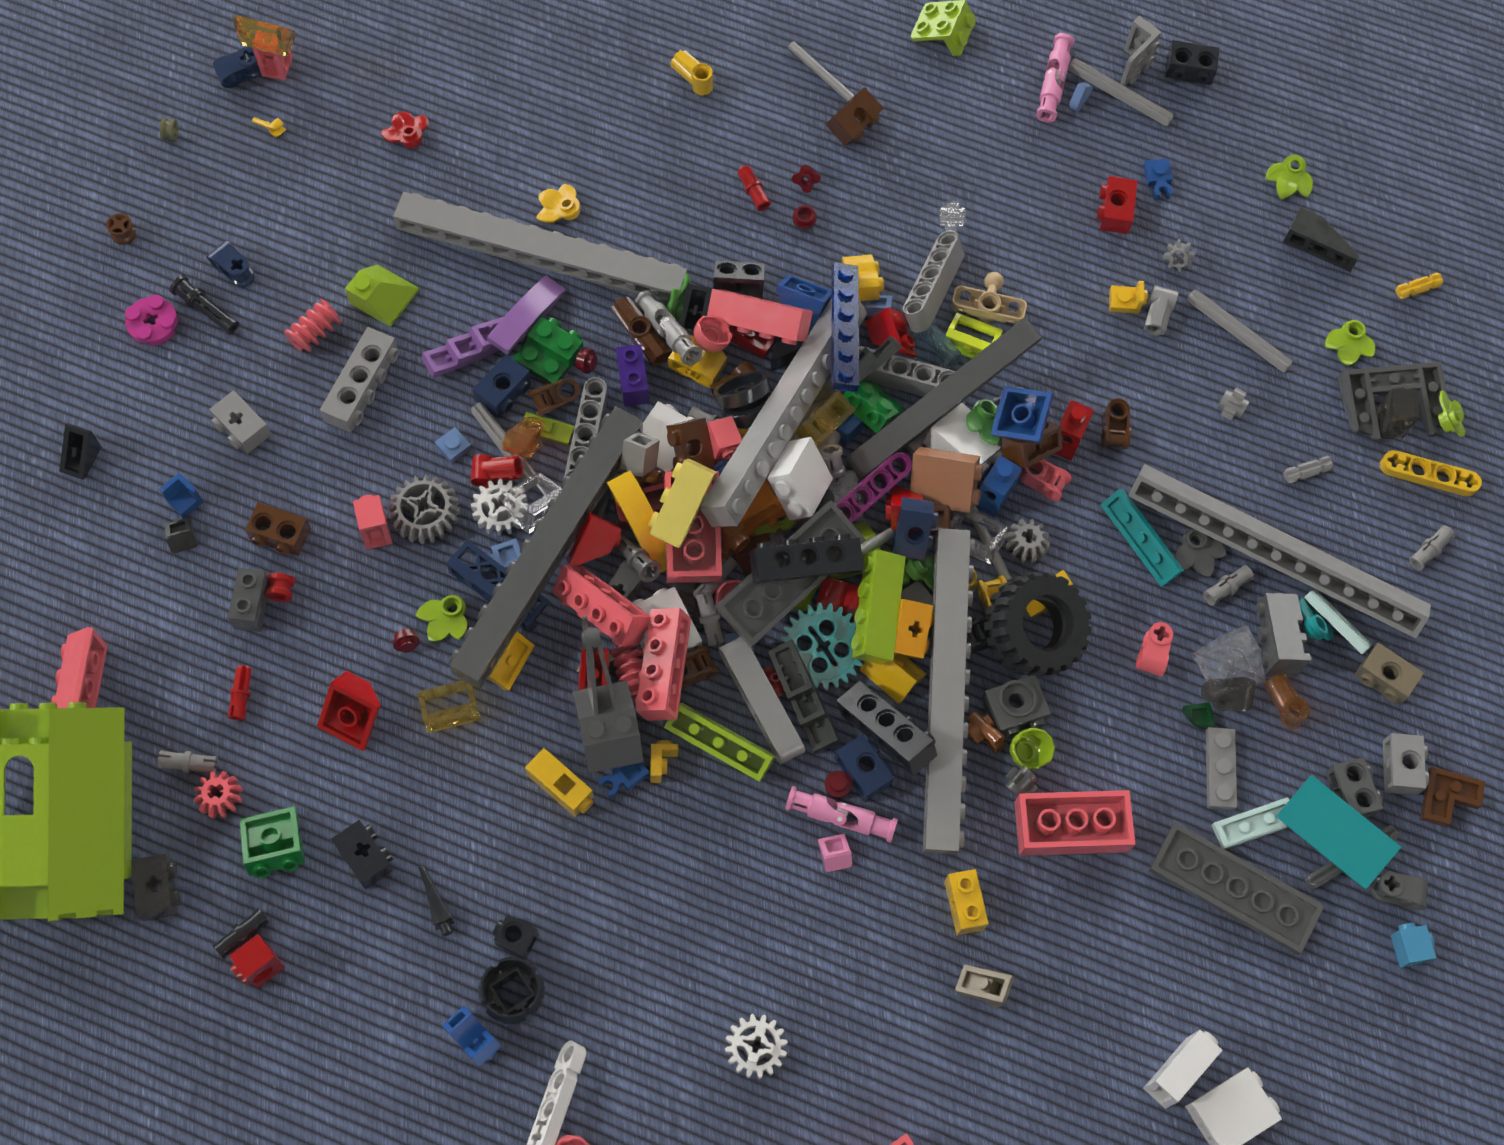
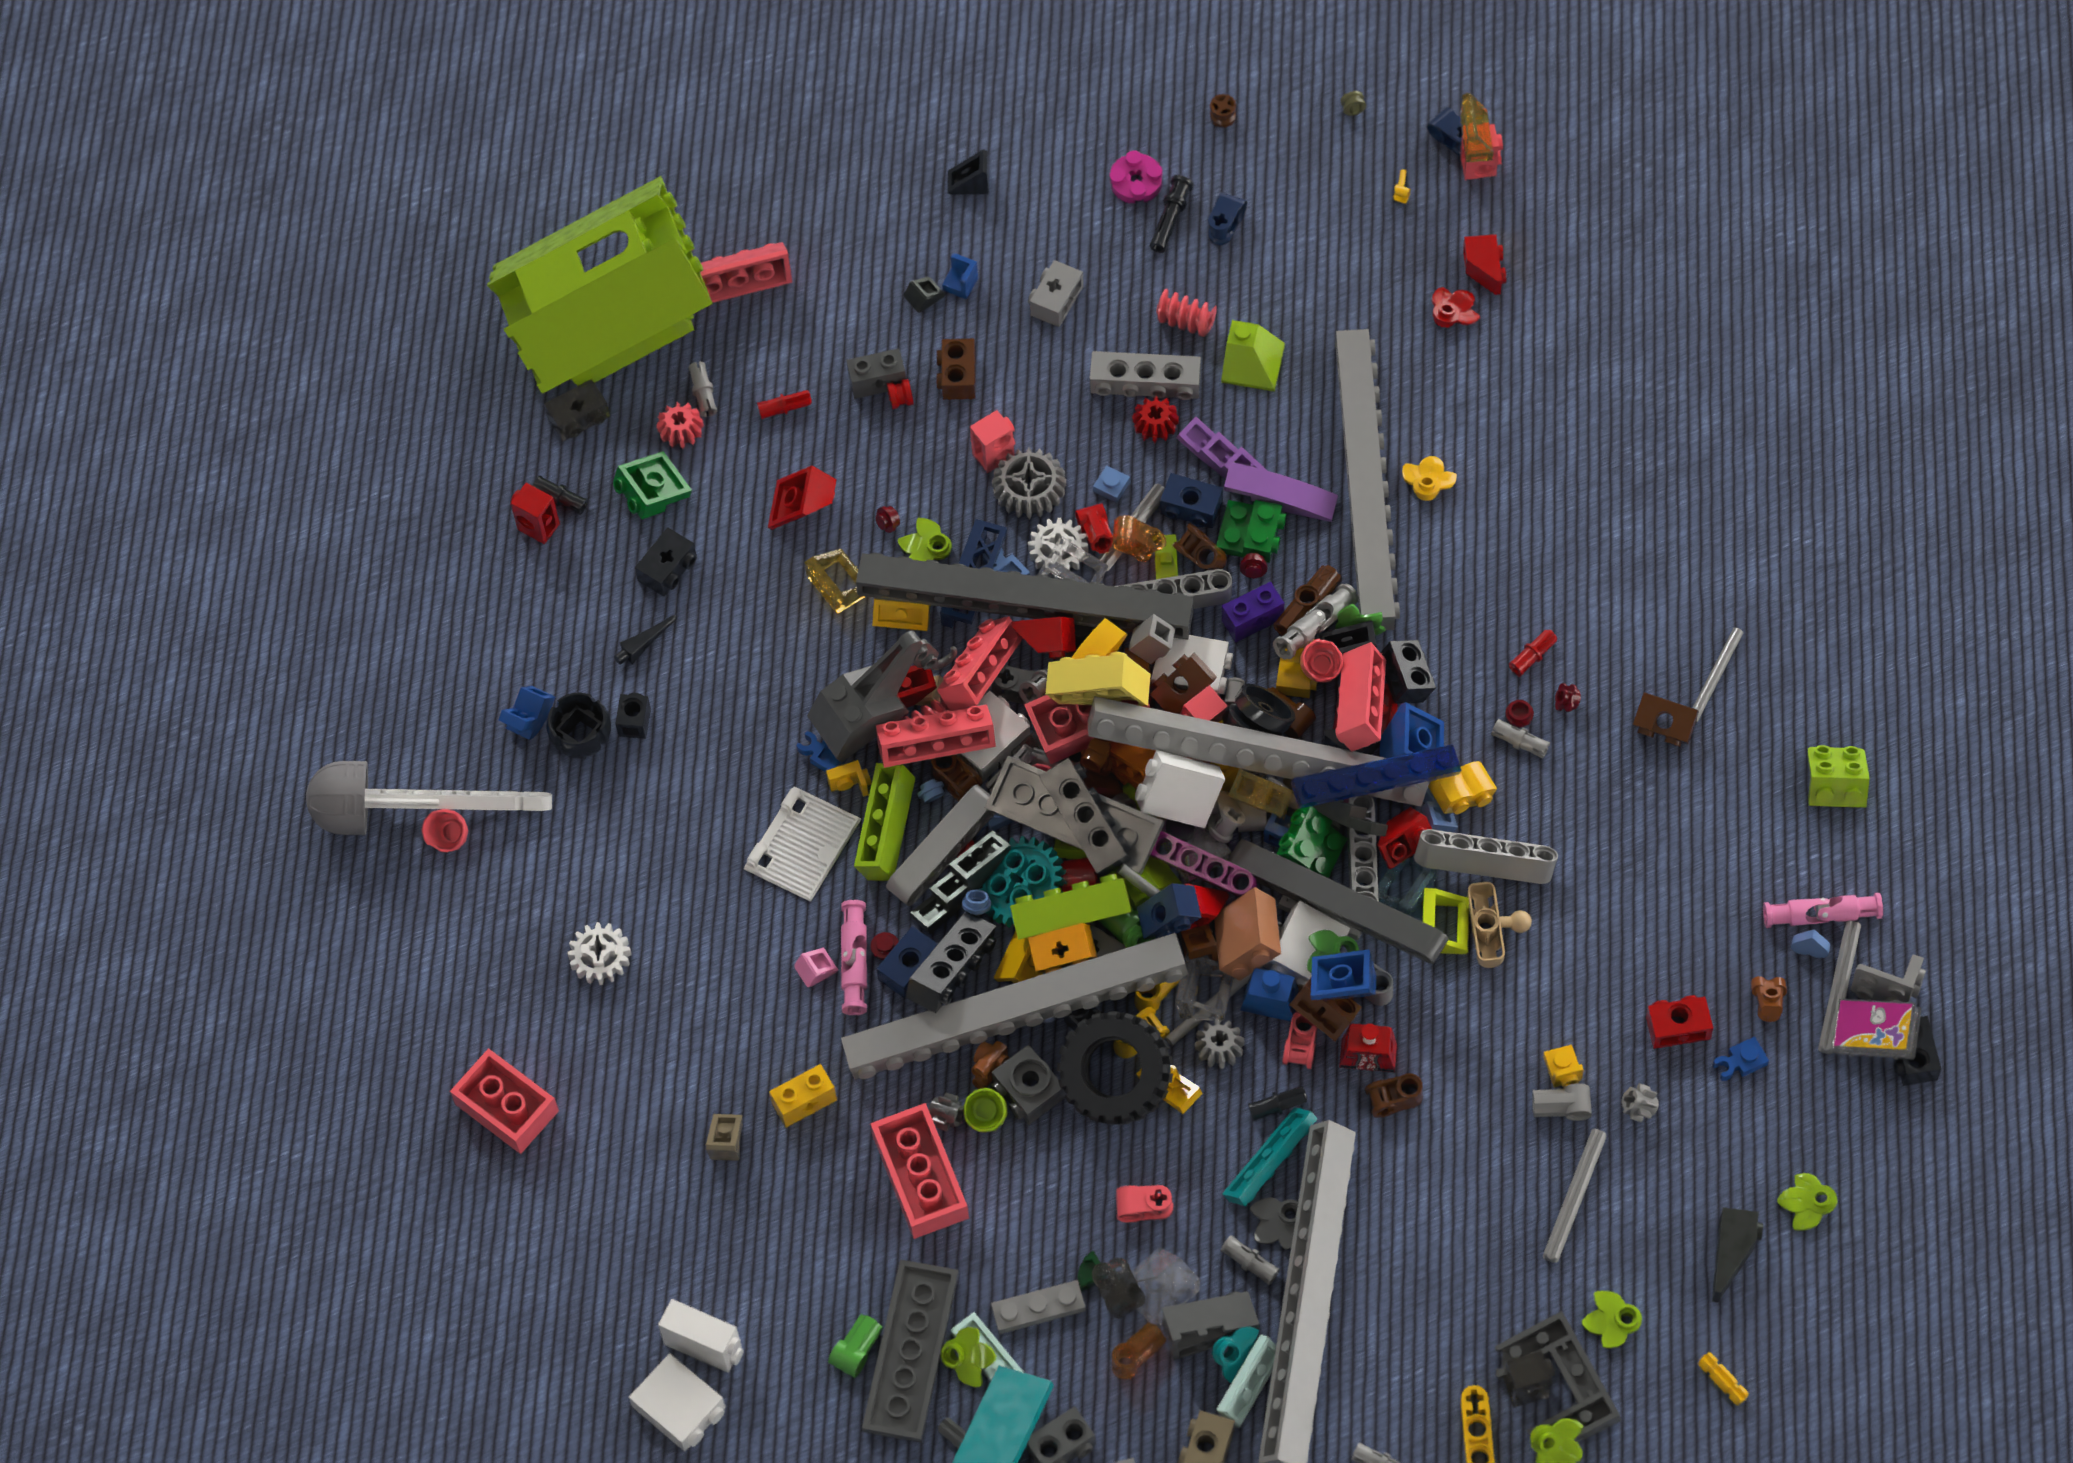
camera: 80 degrees right, 5 degrees down
(376, 91) = (1482, 261): none -> red slope
(397, 386) = (1155, 419): none -> red gear
(560, 783) = (794, 699): yellow brick -> none
(696, 73) = (1650, 545): yellow piece -> none
(700, 693) = (931, 791): none -> medium blue plate
(706, 824) = (802, 844): none -> white window
(827, 224) = (1520, 738): none -> light grey pin
(828, 684) = (976, 902): none -> medium blue plate
(952, 216) = (1583, 855): clear gear -> none
(1094, 516) = (1277, 1103): none -> black axle
(1120, 137) = (1769, 997): none -> dark orange plate
(1175, 74) = (1876, 1029): none -> piece
(1225, 940) = (853, 1351): none -> bright green piece
(1233, 403) = (1472, 1207): light grey gear -> none
(1256, 840) = (971, 1356): none -> lime plate
(1308, 469) = (1427, 1311): light grey axle -> none

